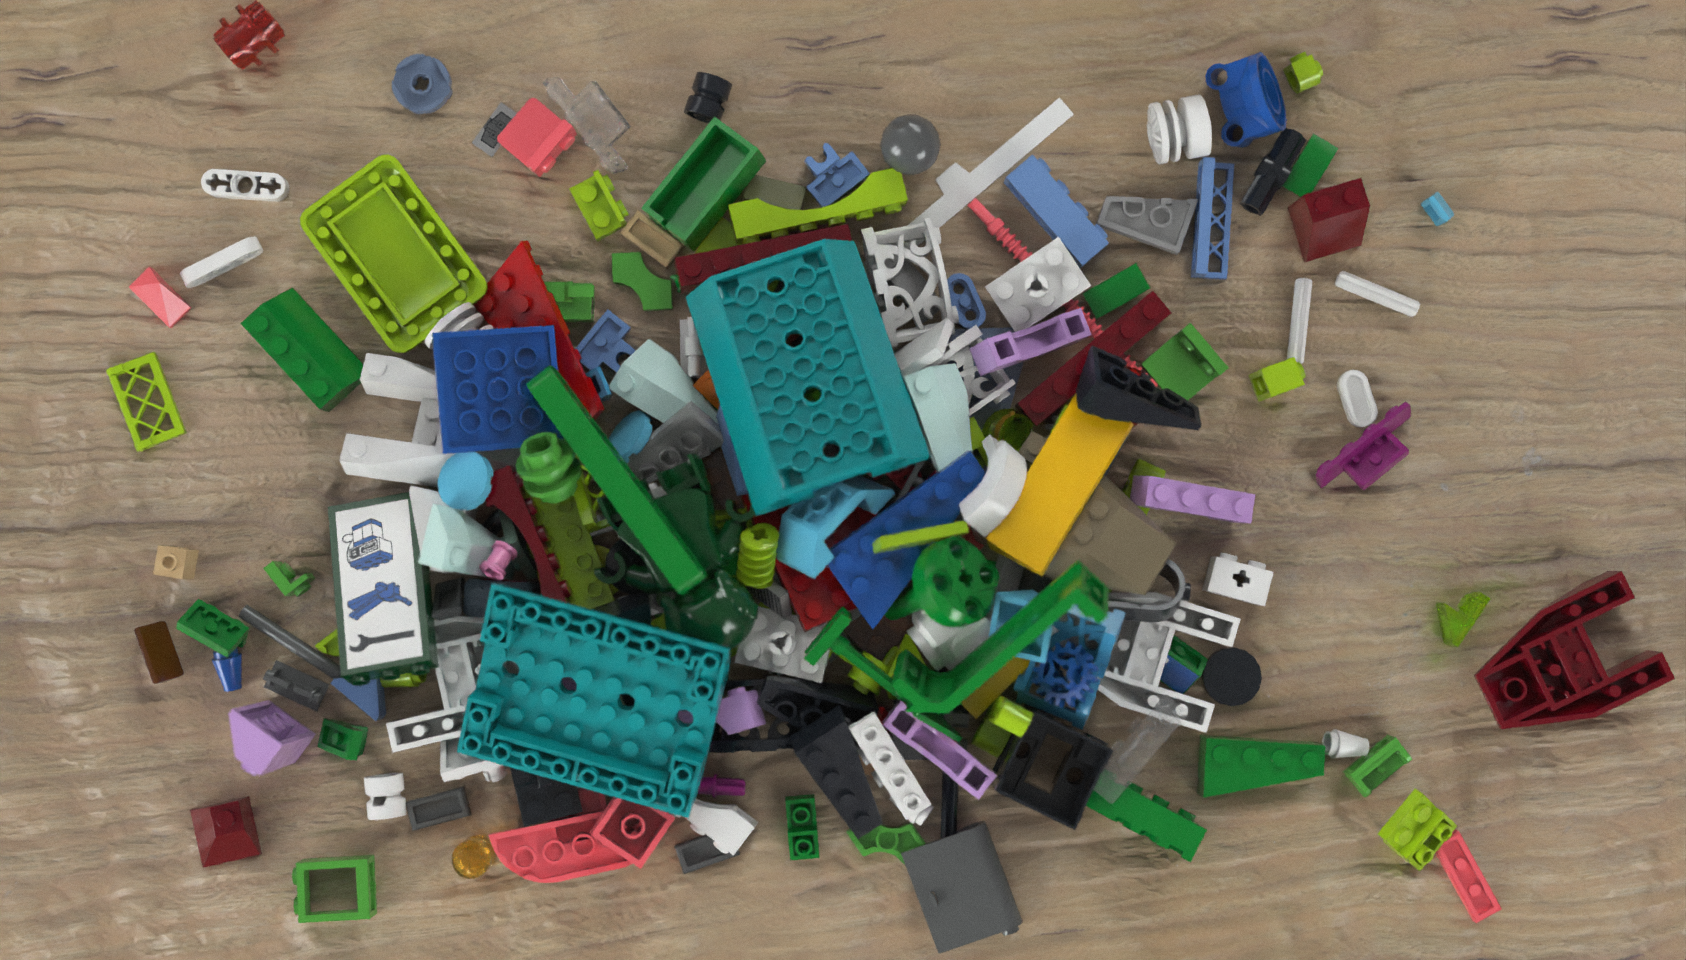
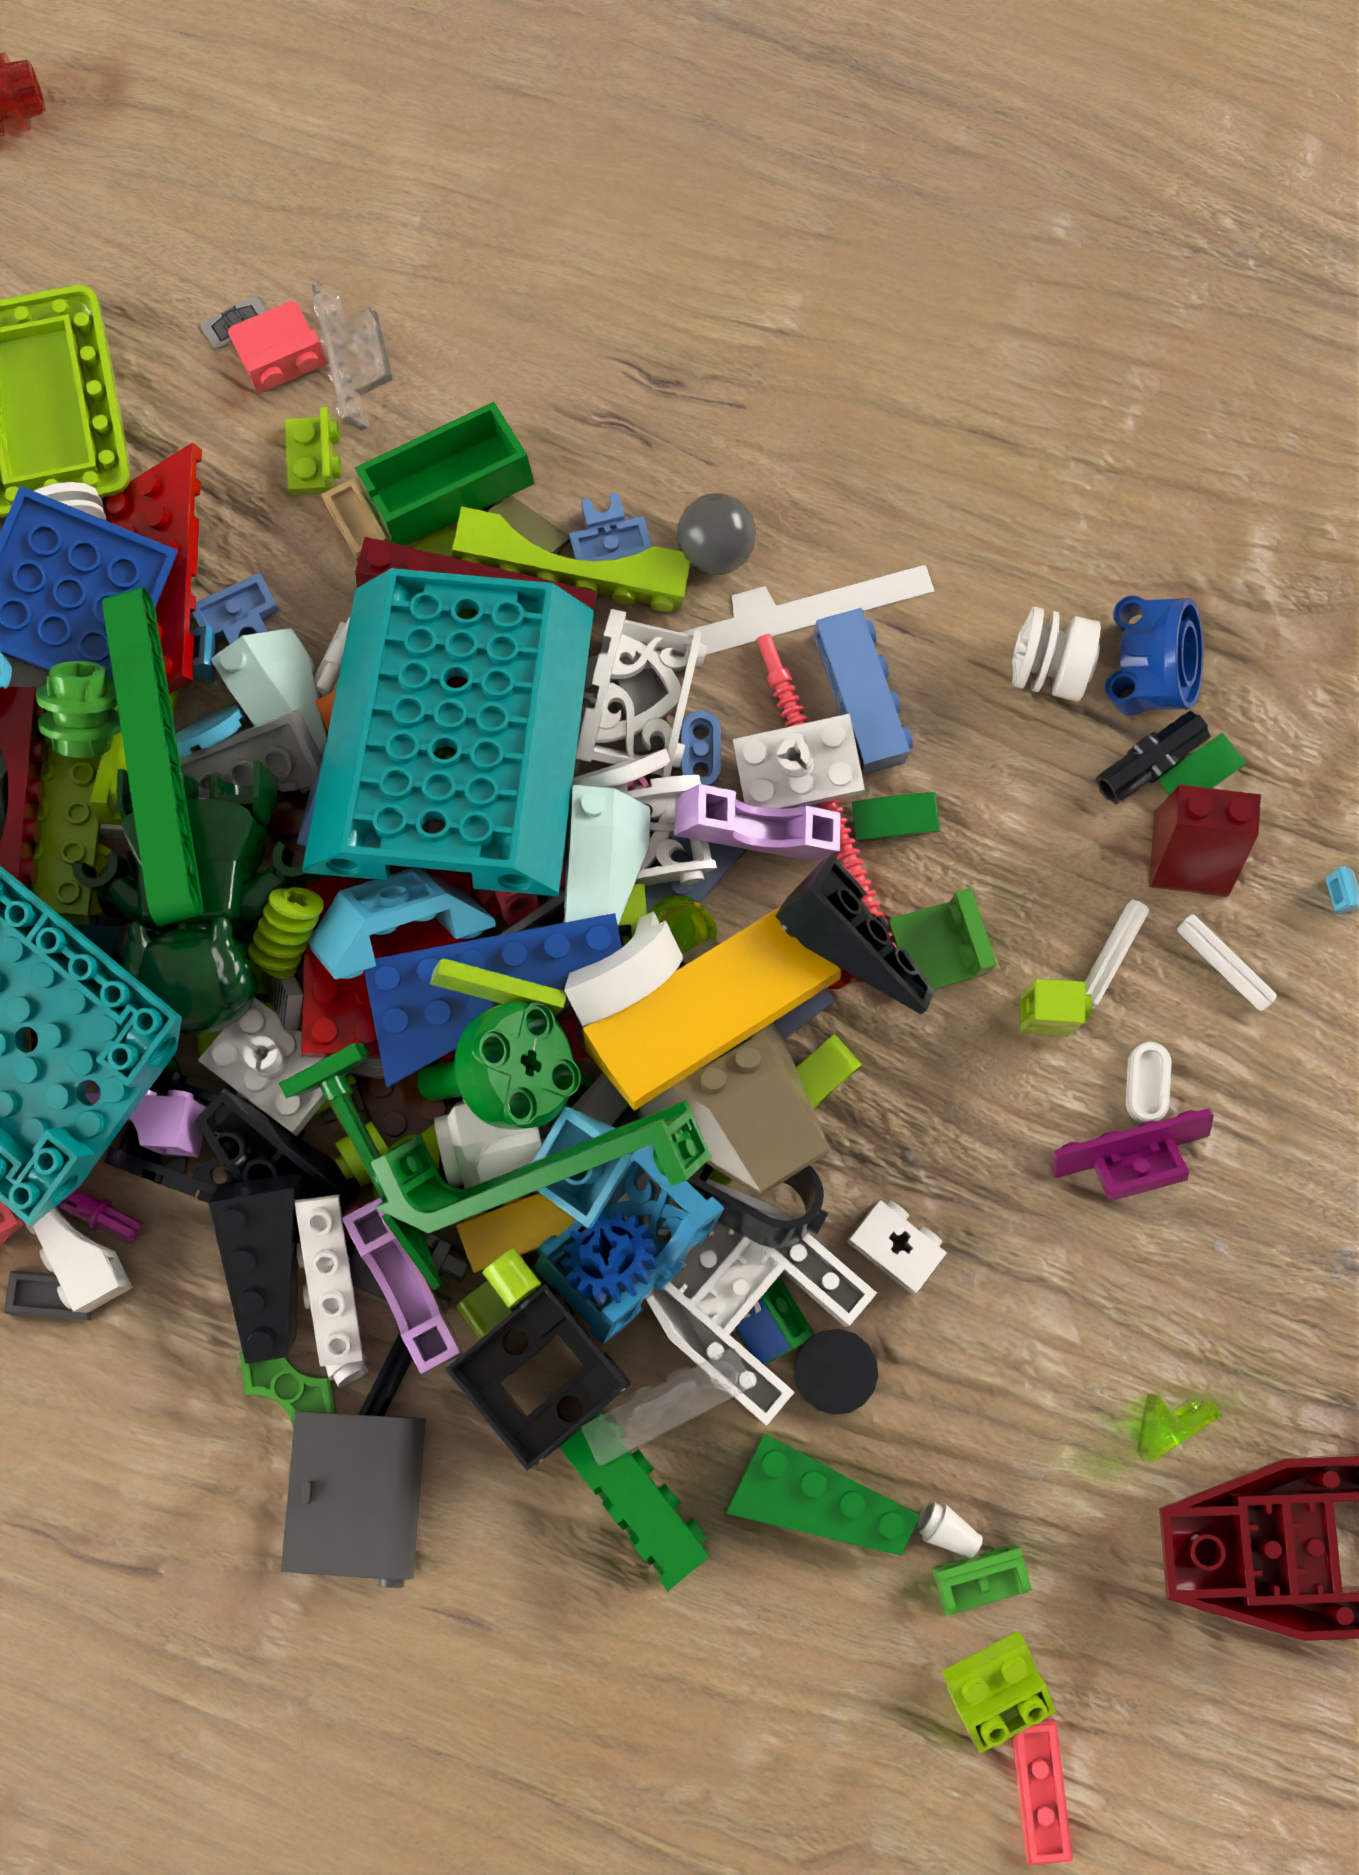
camera: 20 degrees right, 10 degrees down
(437, 90) = (180, 253): sand blue plate -> none
(574, 300) = (224, 546): bright green piece -> none
(653, 291) = (312, 545): bright green tile -> none
(708, 97) = (502, 381): black wheel -> none
(802, 827) = (186, 1320): green slope -> none
(1114, 339) = (877, 870): dark red arch -> none
(1149, 221) = (977, 755): light grey wing -> none
(1192, 499) = (860, 1095): lavender arch -> none
(1204, 215) = (1043, 773): medium blue fence -> none
(1303, 72) = (1239, 655): lime plate -> none

